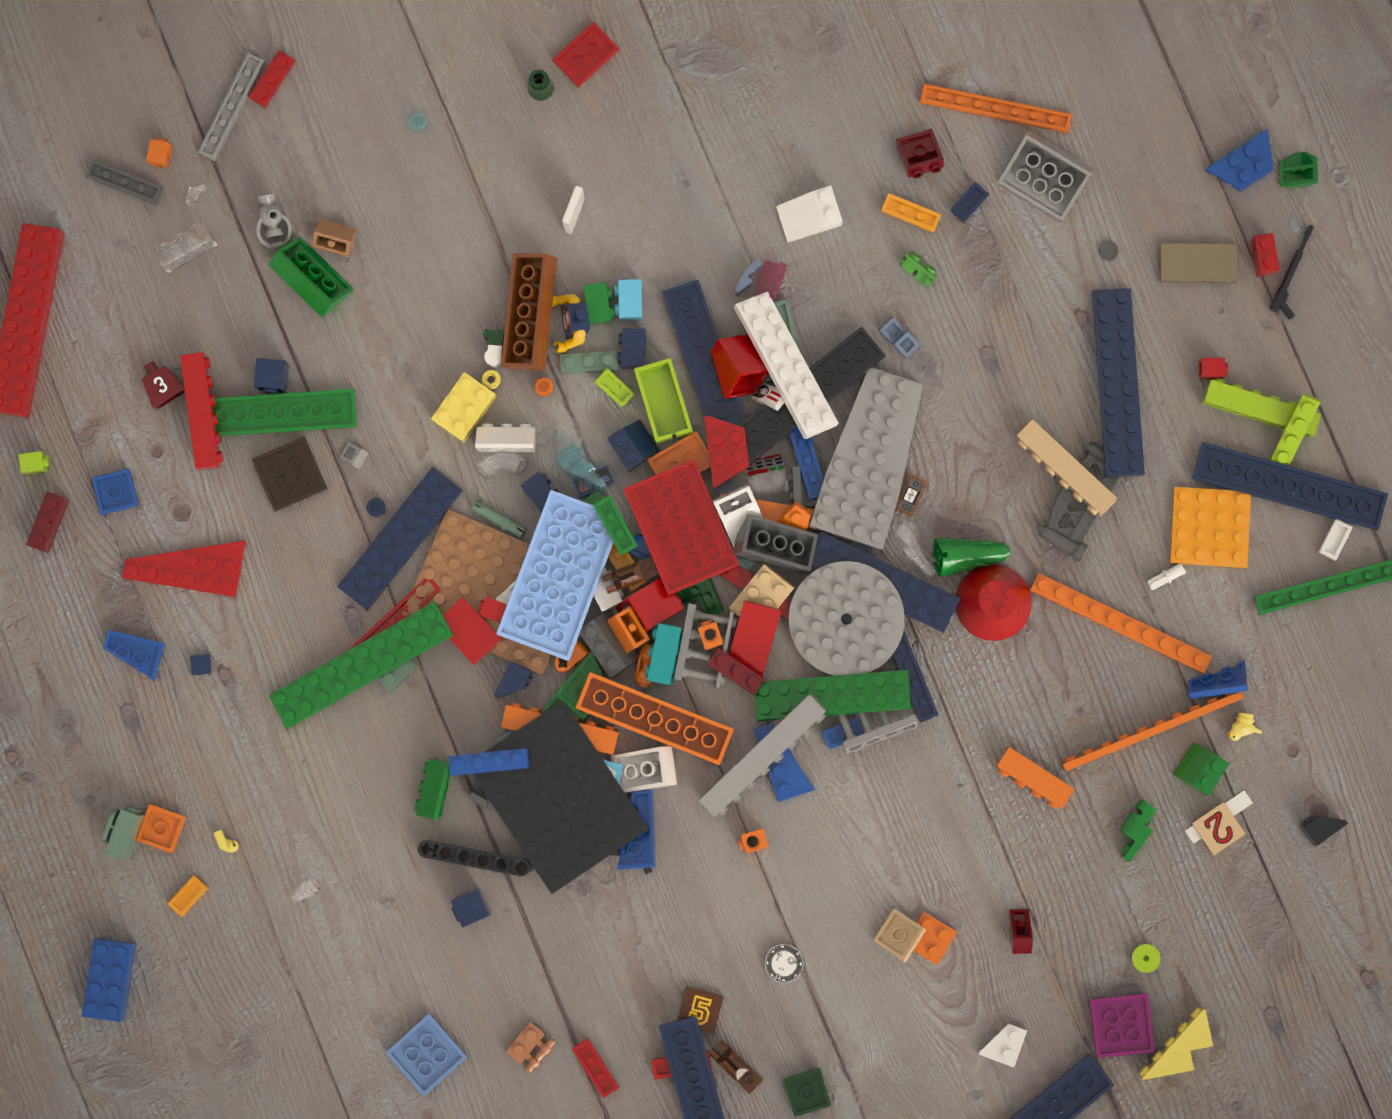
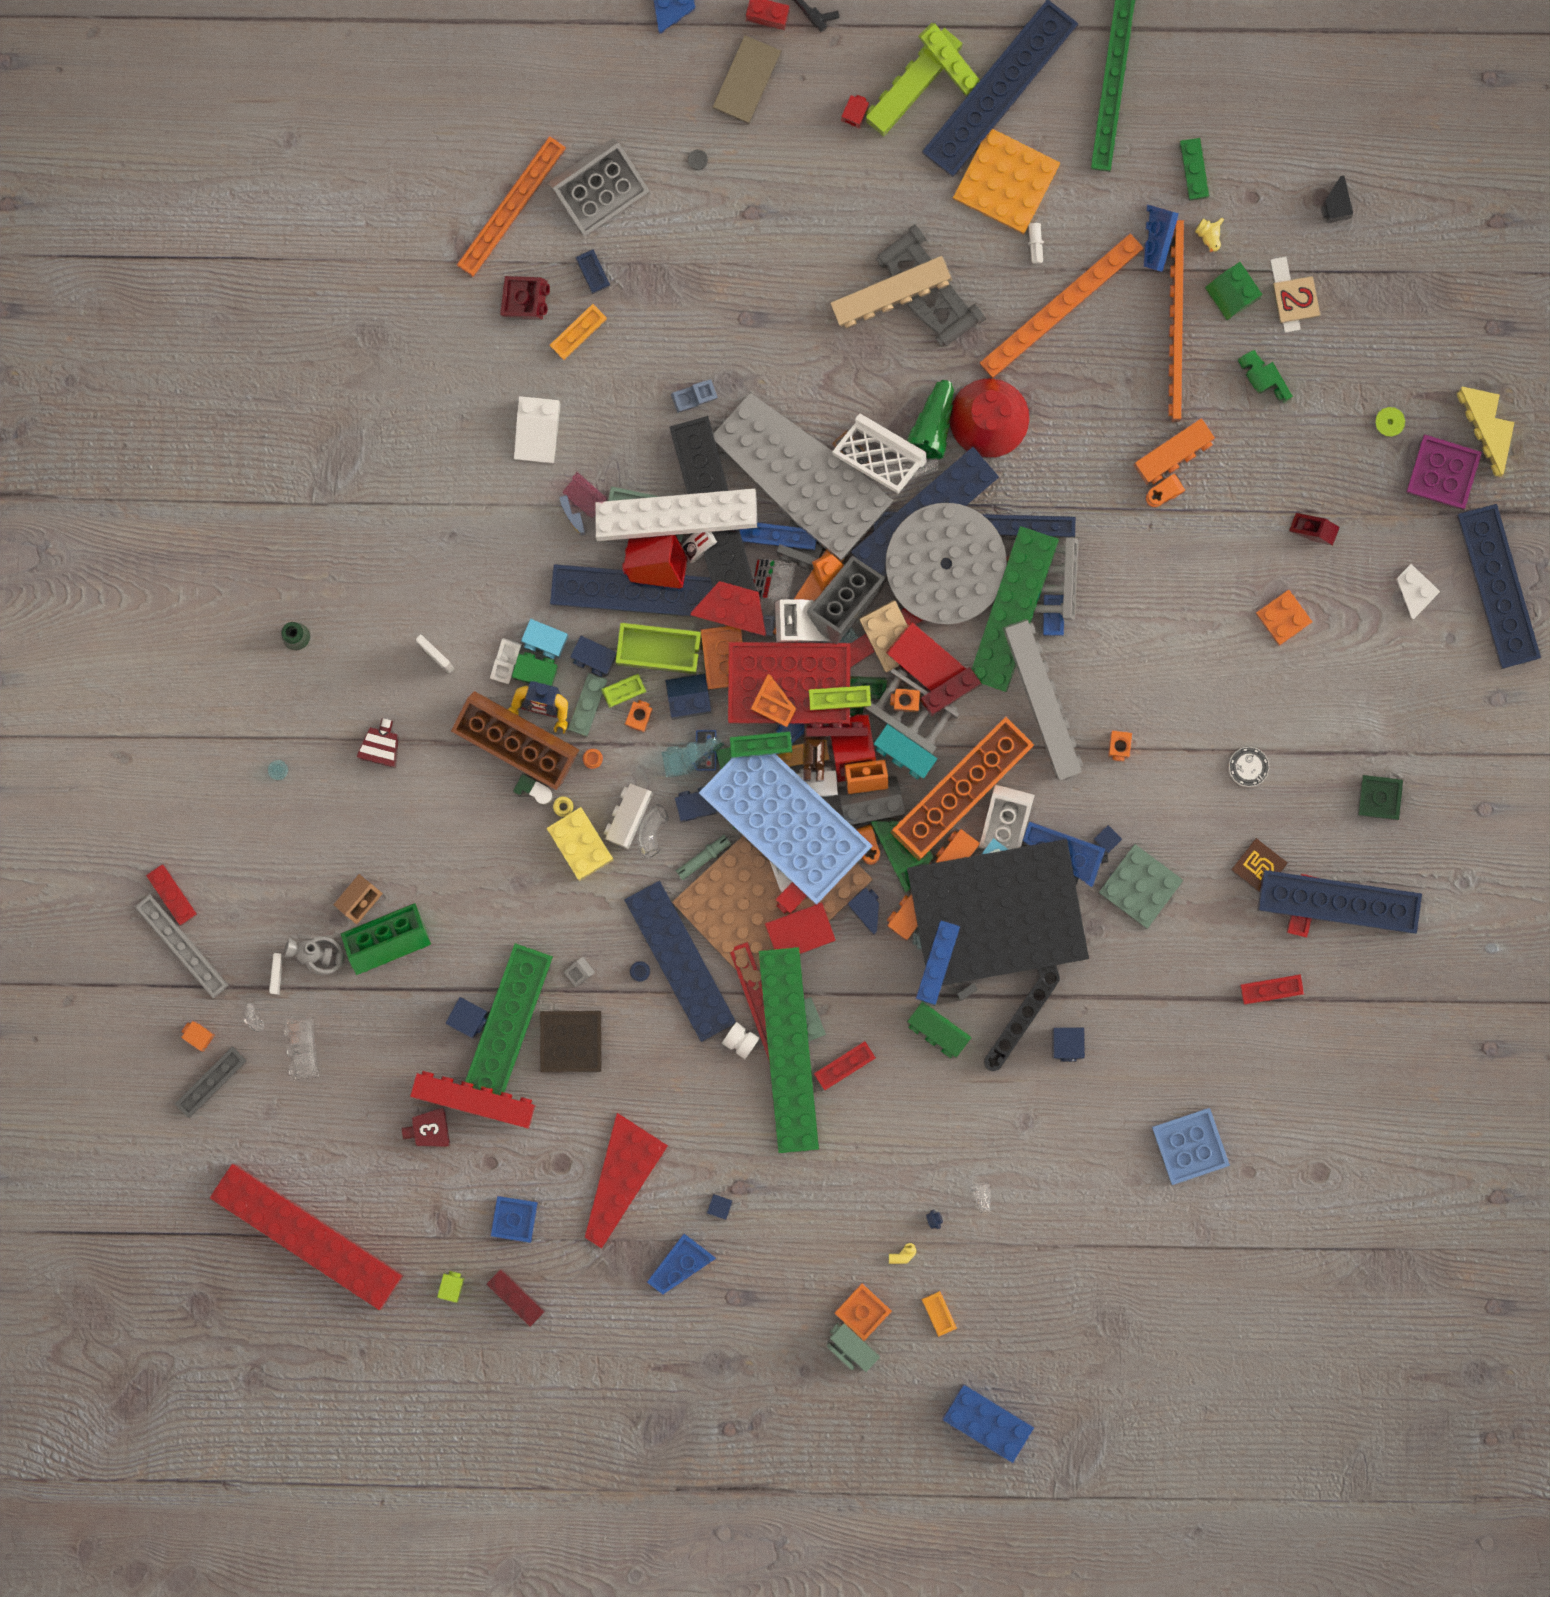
camera: 65 degrees left, 0 degrees up
(240, 196) = (276, 972): none -> white tile
(267, 856) = (934, 1219): none -> dark blue plate
(352, 620) = (740, 1040): none -> white wheel
(369, 720) = (844, 1065): none -> red plate
(476, 199) = (380, 745): none -> torso
(524, 1044) = (1219, 1046): nougat plate -> none
(585, 54) = (283, 578): red tile -> none
(591, 404) = (636, 724): none -> orange brick
(596, 274) = (505, 661): none -> white slope
(637, 912) = (1140, 886): none -> sand green plate
(640, 676) = (899, 773): orange piece -> none
(656, 520) = (773, 703): none -> orange wing
(657, 585) = (837, 729): none -> dark red plate
(666, 865) = (1107, 839): none -> dark blue tile
(686, 576) = (839, 698): none -> lime plate
(736, 1067) = (1328, 854): reddish brown plate -> none
(786, 775) = (1072, 686): blue wing -> none
(899, 935) = (1269, 644): tan plate -> none
(913, 263) = (628, 350): bright green hinge -> none
(932, 525) = (891, 442): none -> white fence
(998, 786) = (1167, 490): none -> orange piece
(1118, 383) = (830, 206): dark blue plate -> none
(1294, 688) = (1194, 169): none -> green plate
(1335, 539) = (1069, 68): white tile -> none

